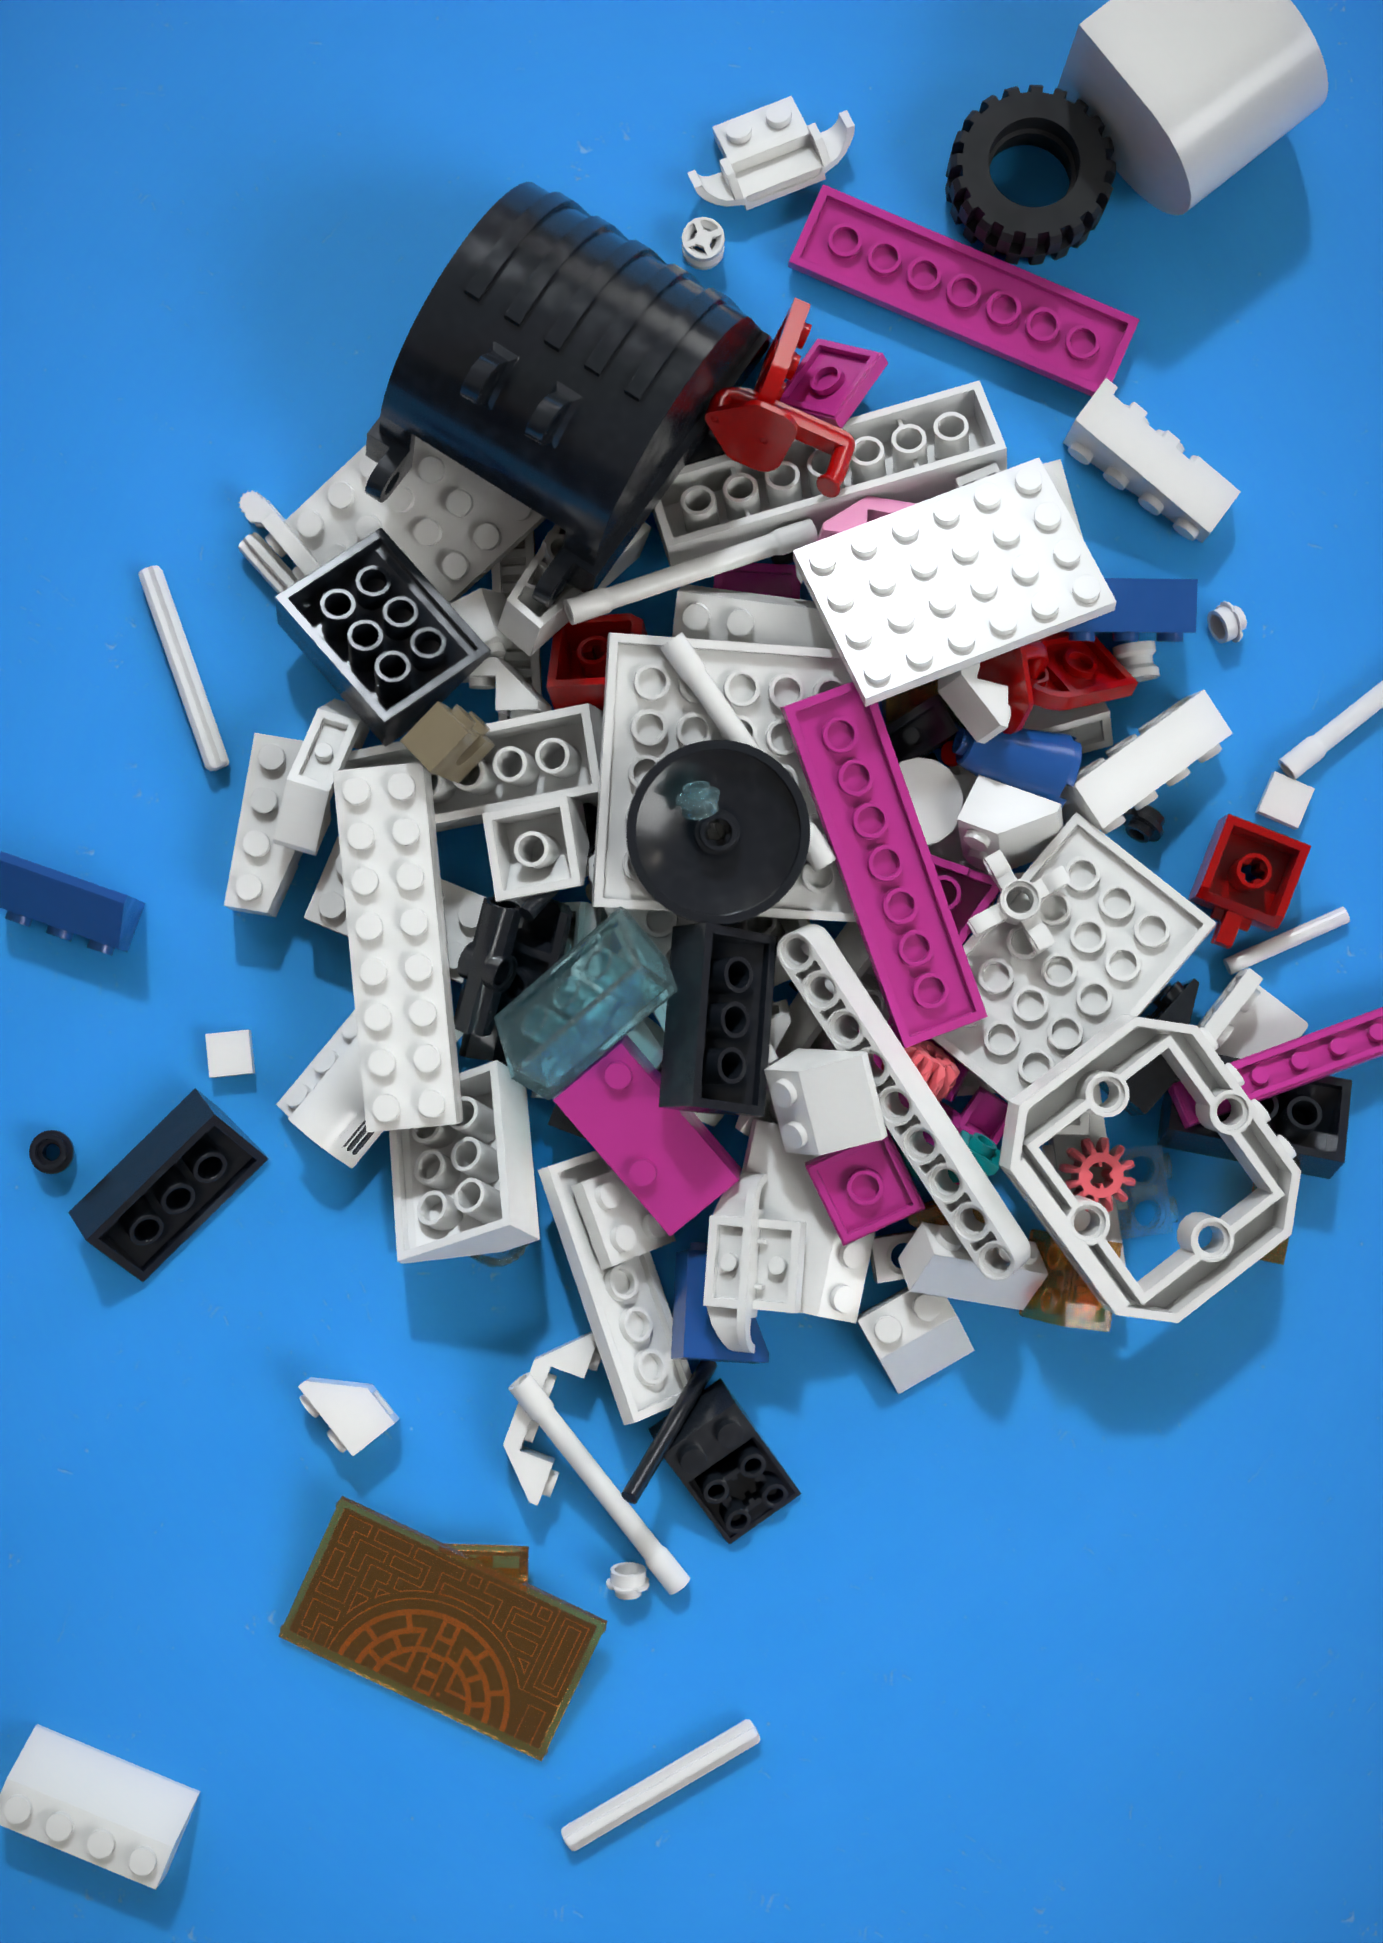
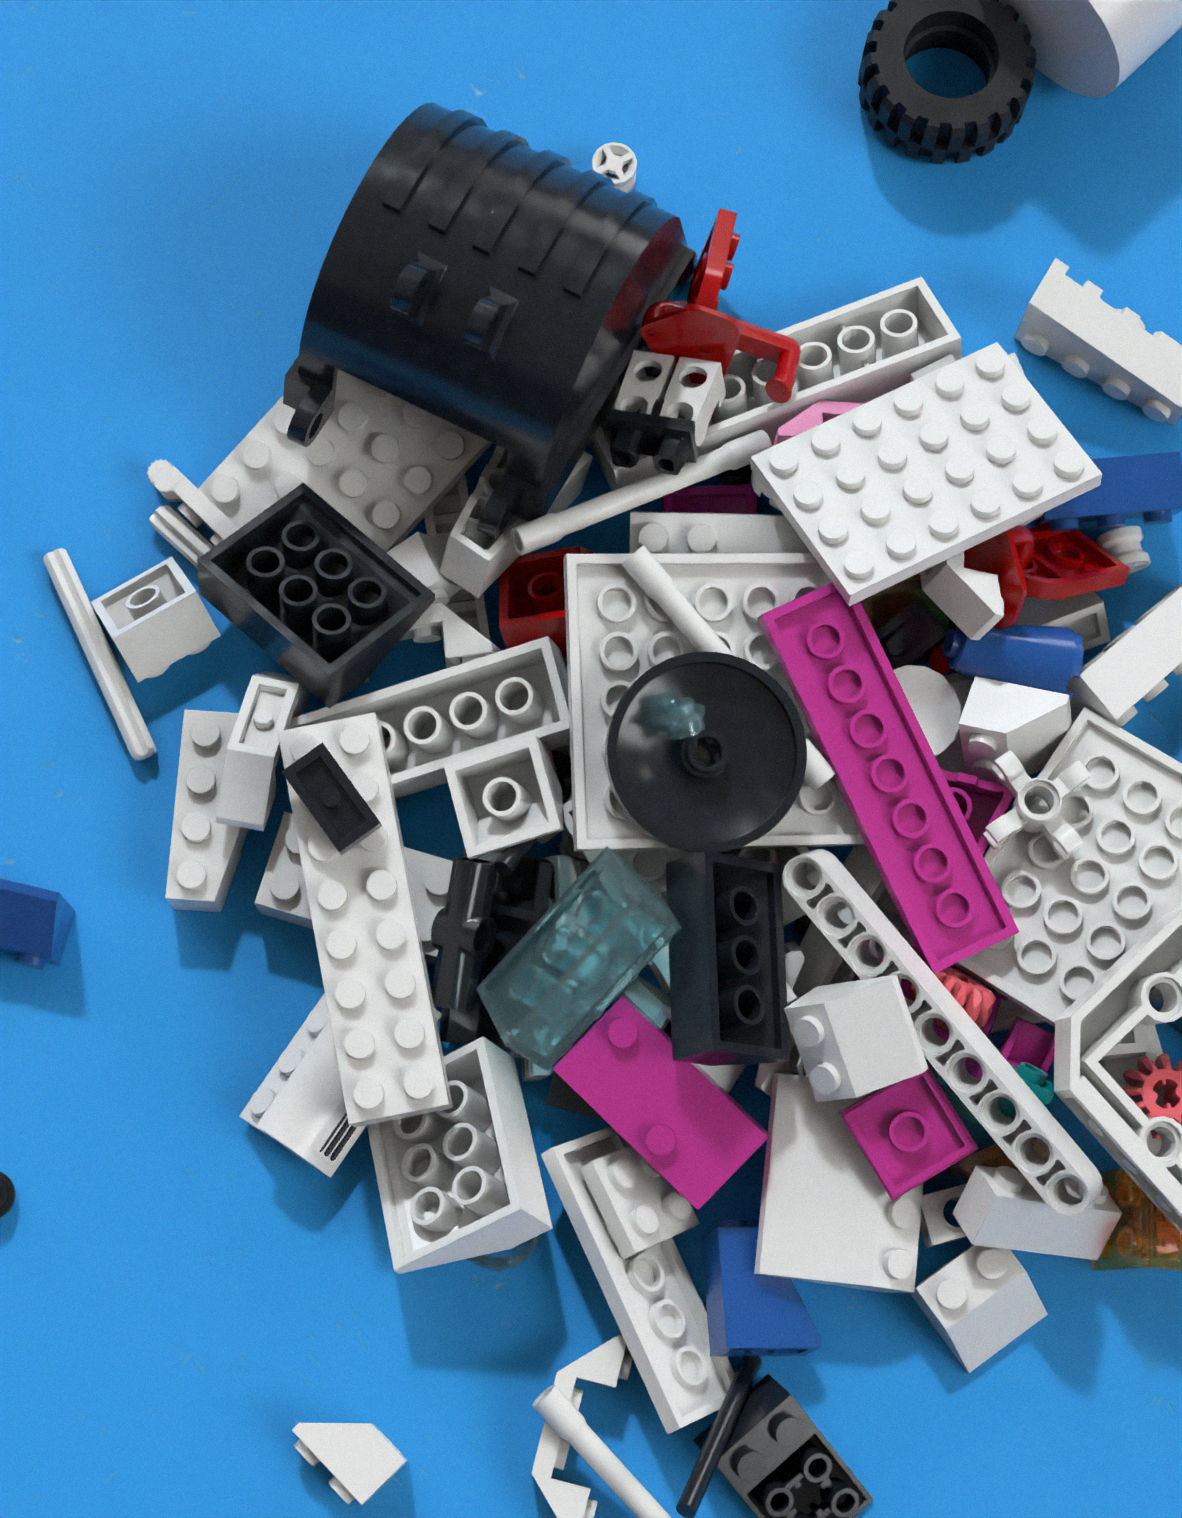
camera: 10 degrees left, 10 degrees down
(167, 1186) = (124, 1219): black slope -> none
(230, 1053) = (182, 1065): white tile -> none
(236, 641) = (156, 619): none -> white slope
(374, 841) = (331, 798): none -> black plate
(449, 741) = (402, 687): dark tan brick -> none
(719, 495) = (665, 413): none -> hips
(750, 1263) = (791, 1232): white plate -> none
(771, 155) = (676, 78): white plate -> none
(833, 380) = (769, 289): dark pink tile -> none
(962, 292) = (890, 195): dark pink plate -> none
(1144, 824) = (1155, 719): black plate -> none

